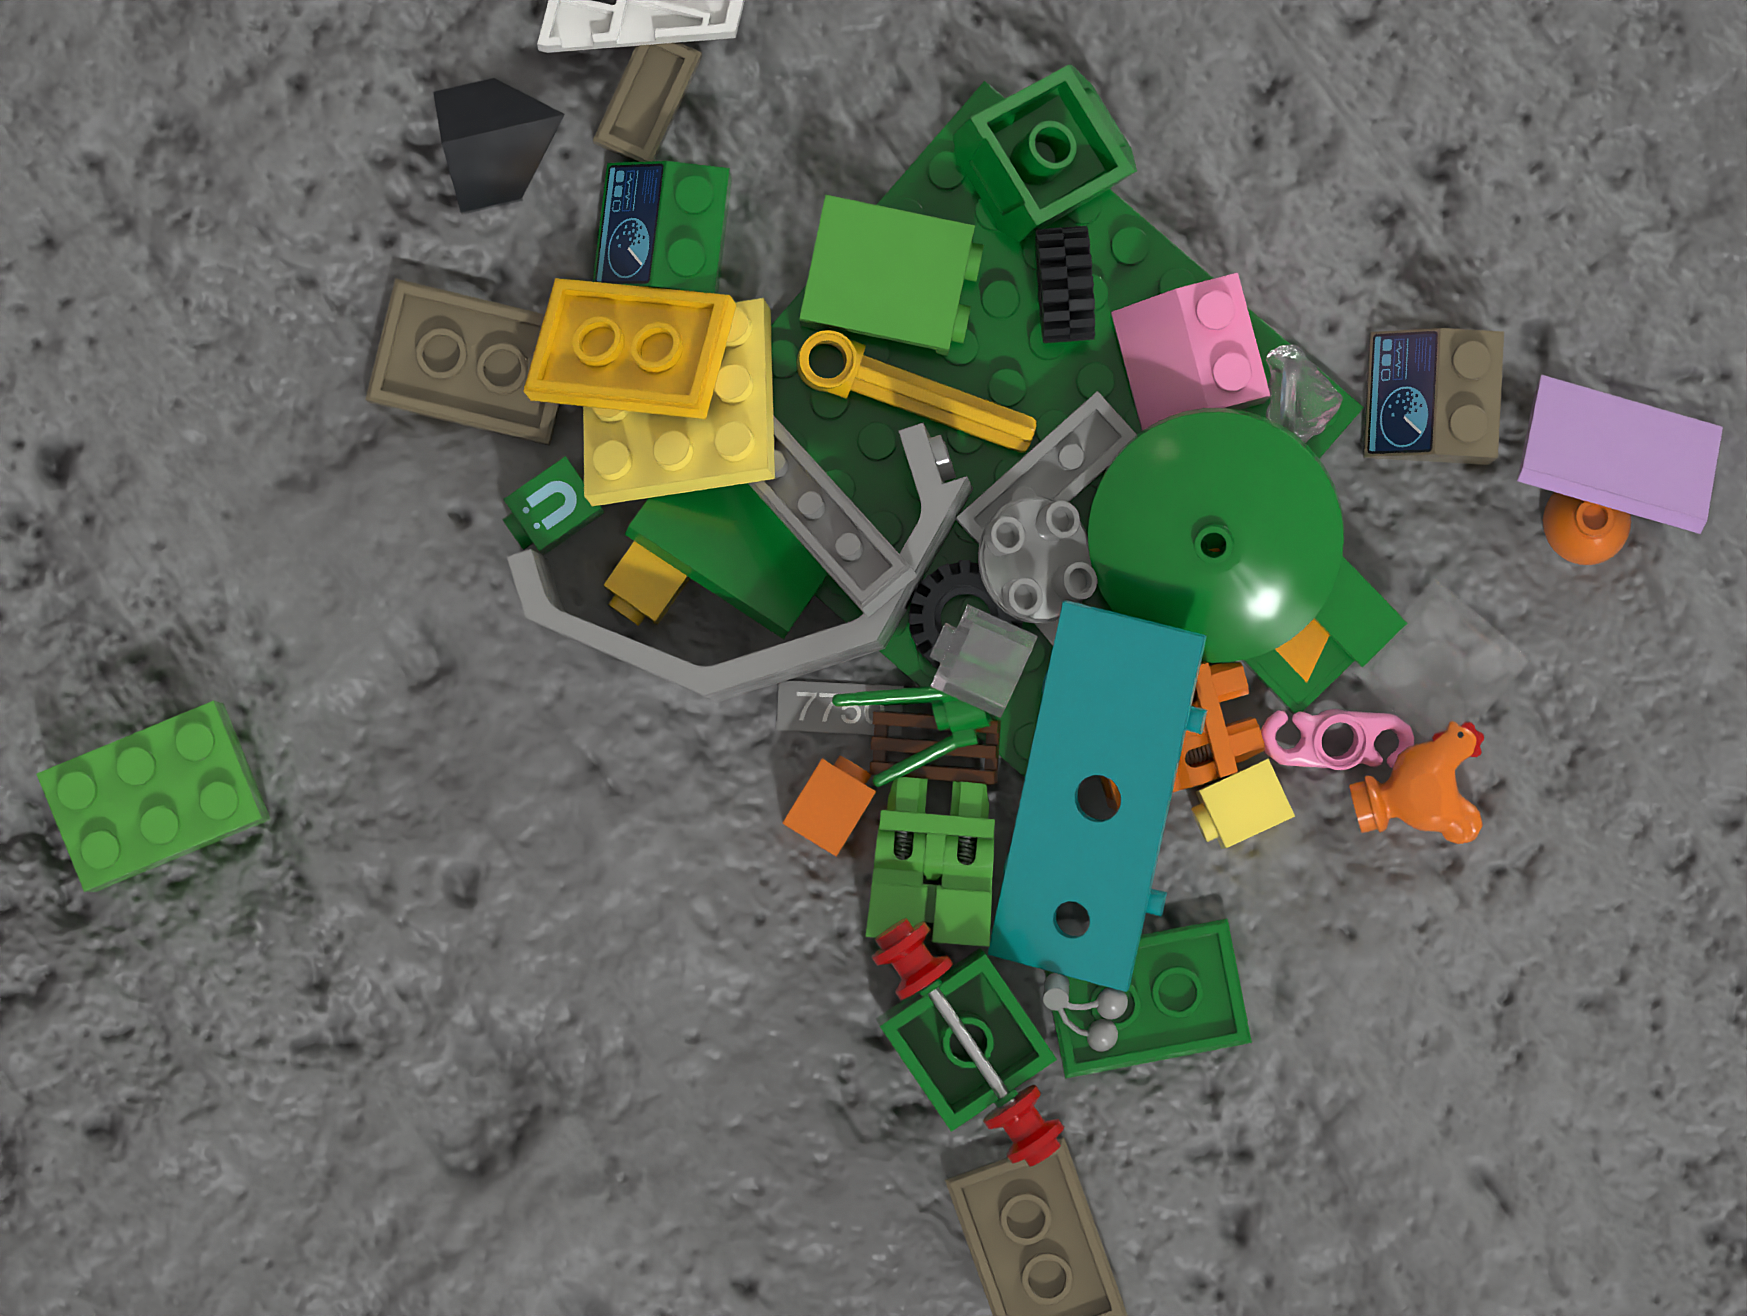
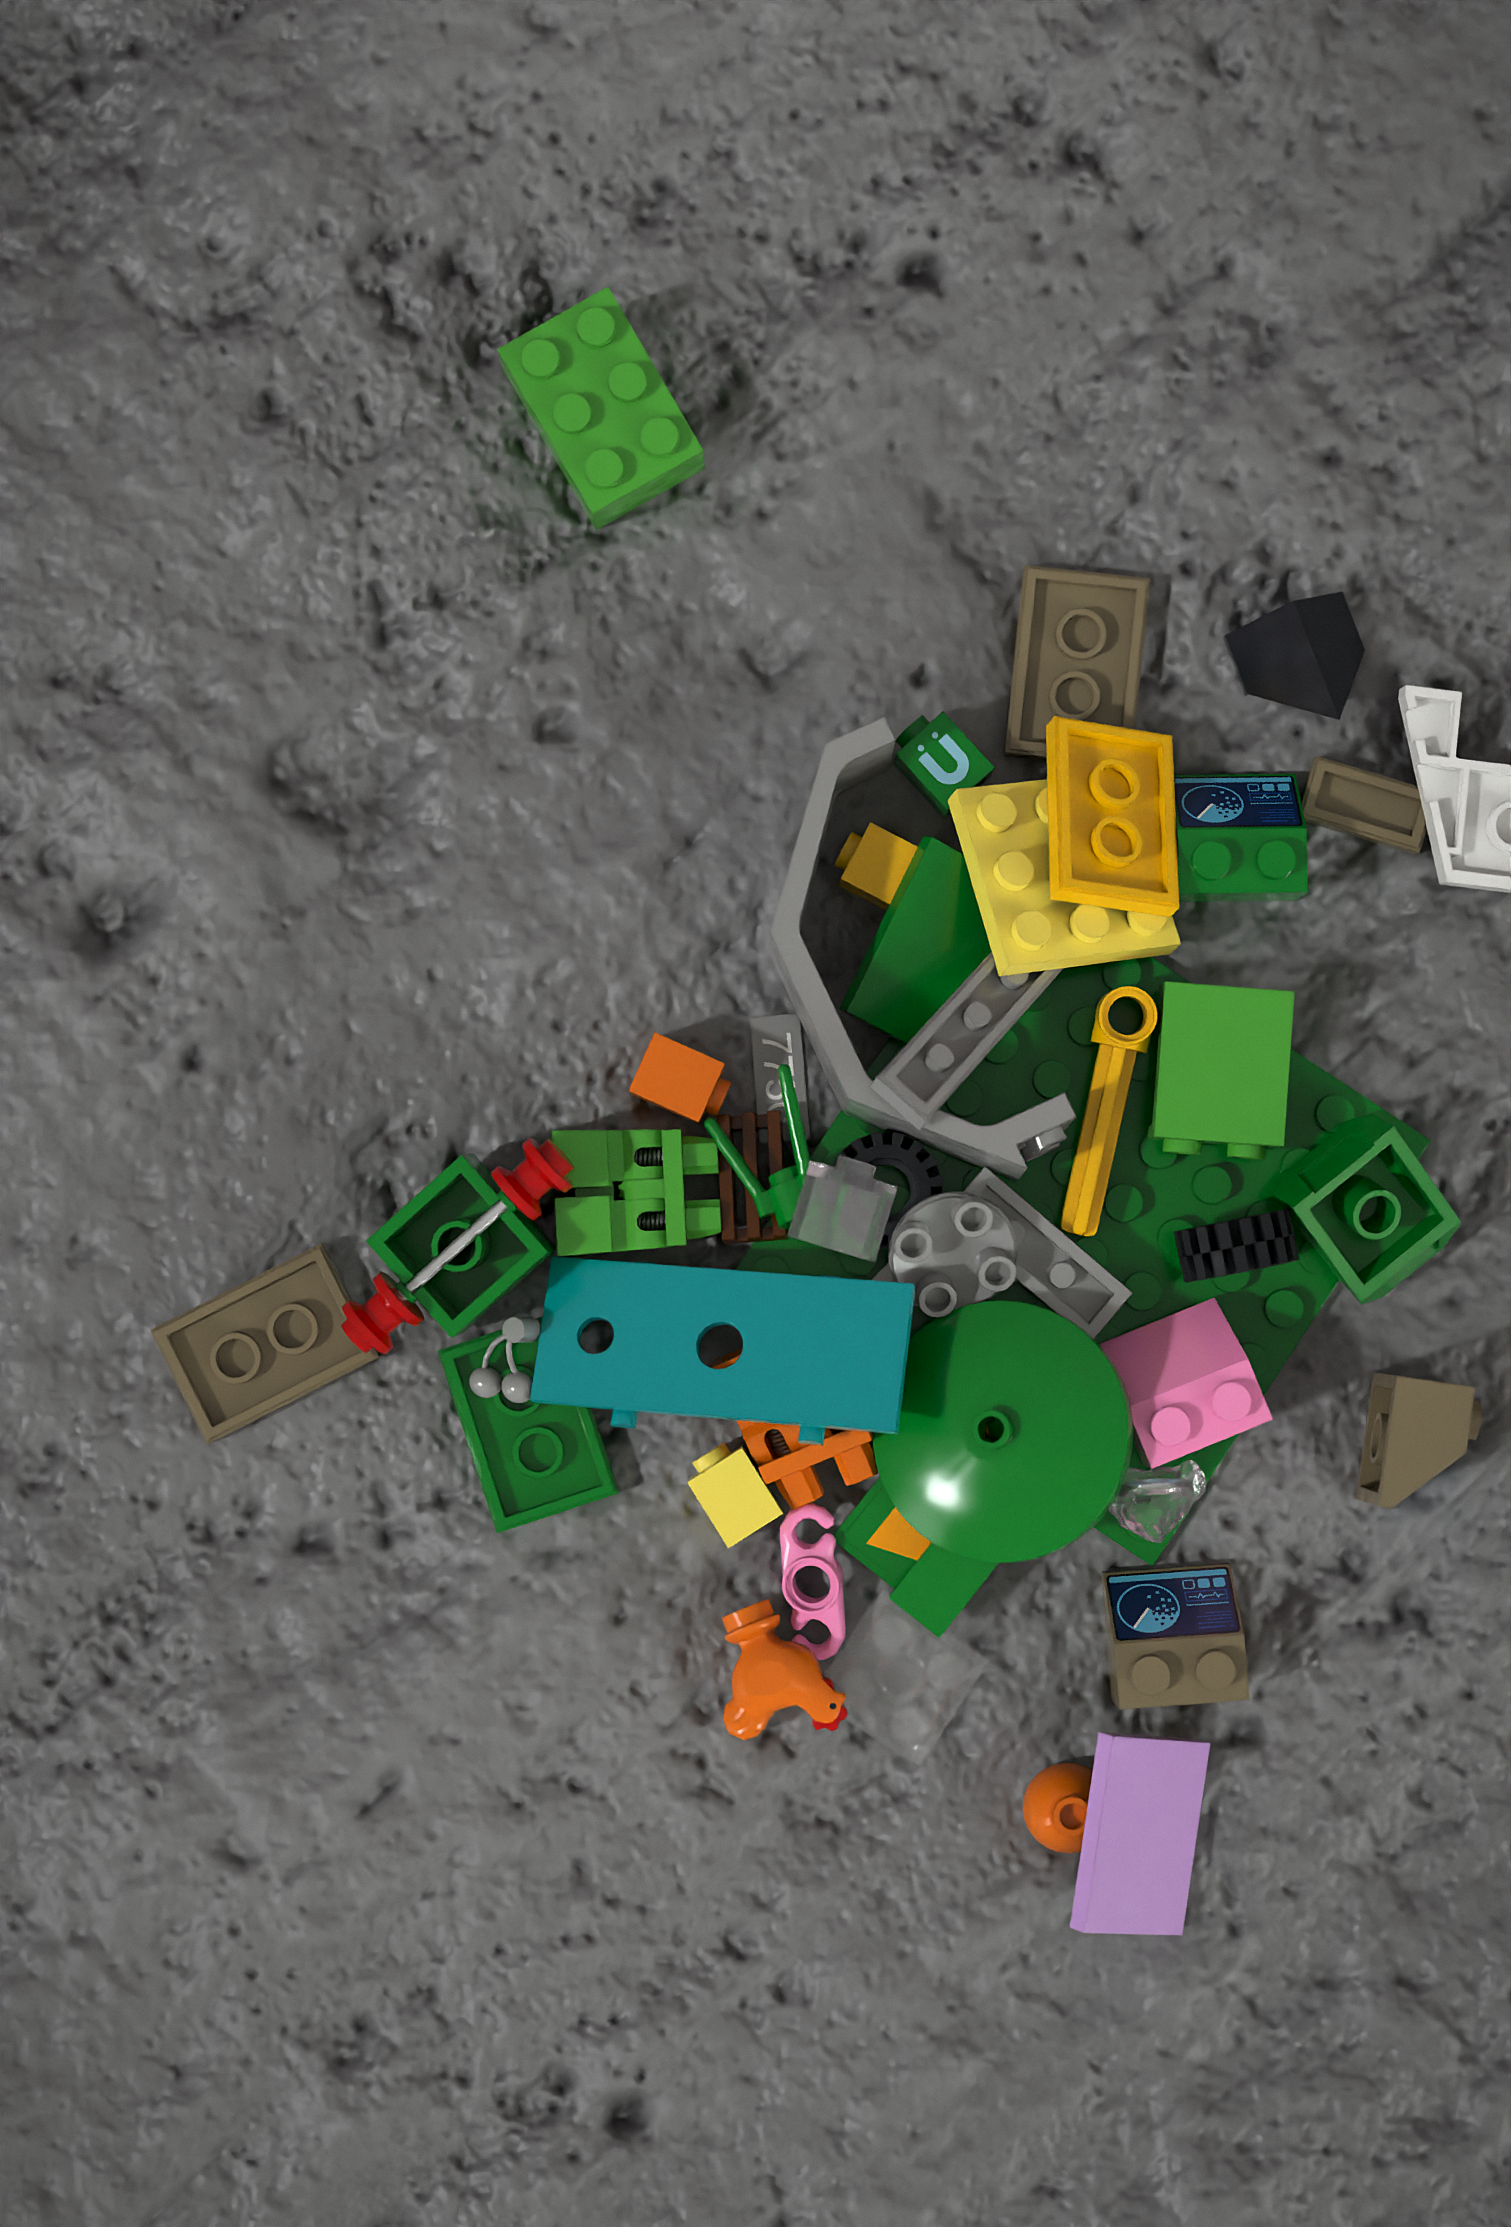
camera: 85 degrees right, 0 degrees up
(1269, 139) = (1412, 1435): none -> dark tan slope

